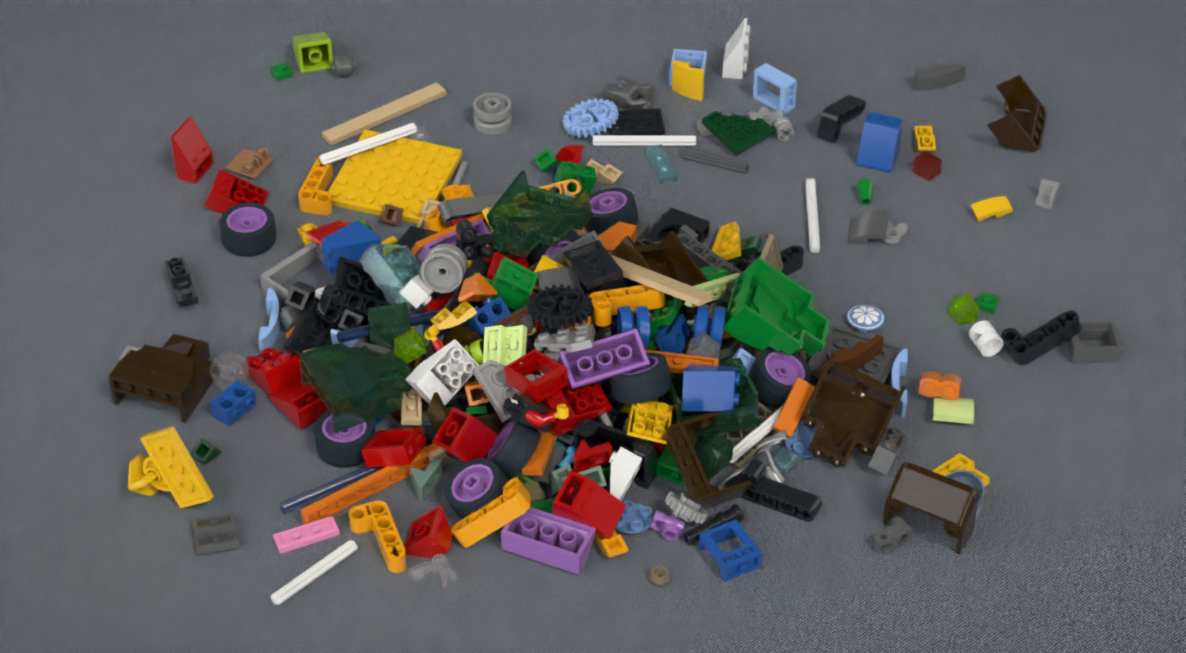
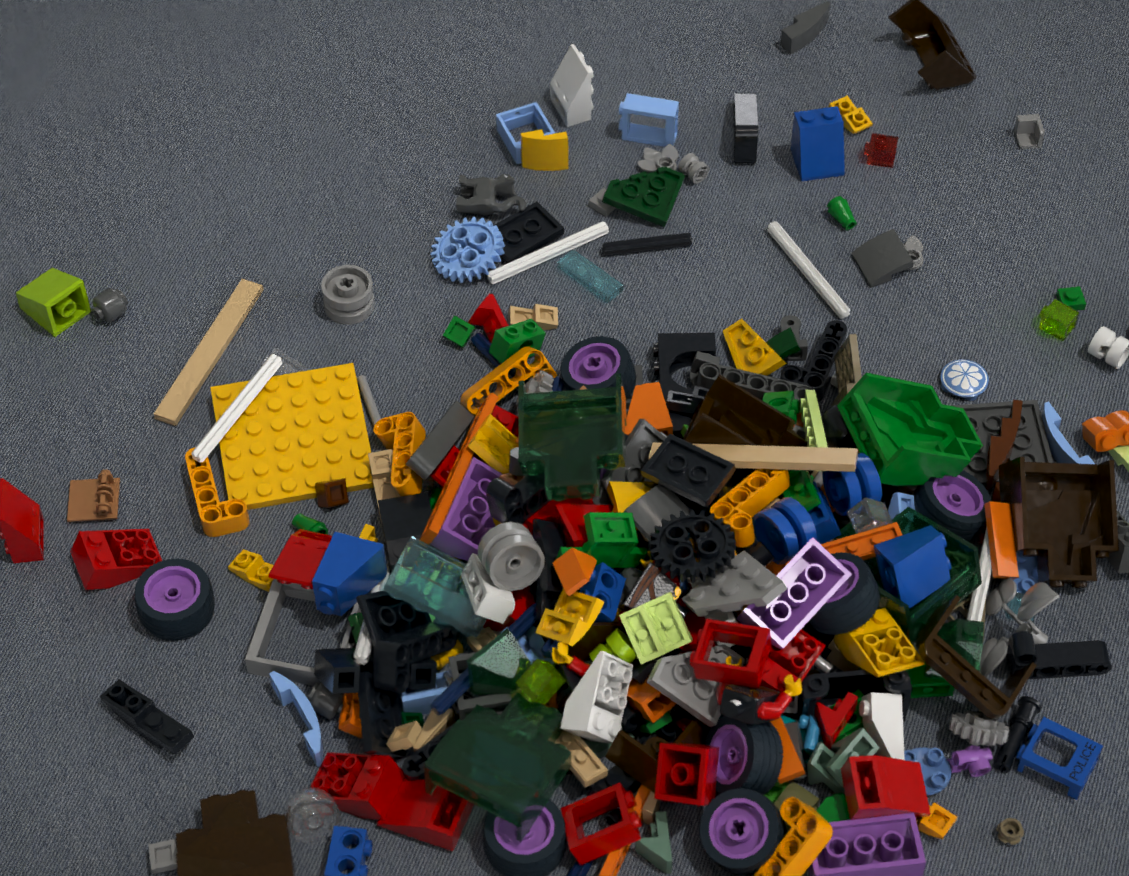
camera: 30 degrees left, 10 degrees up
(281, 71) = (31, 347): green plate -> none
(993, 206) = (987, 175): yellow slope -> none

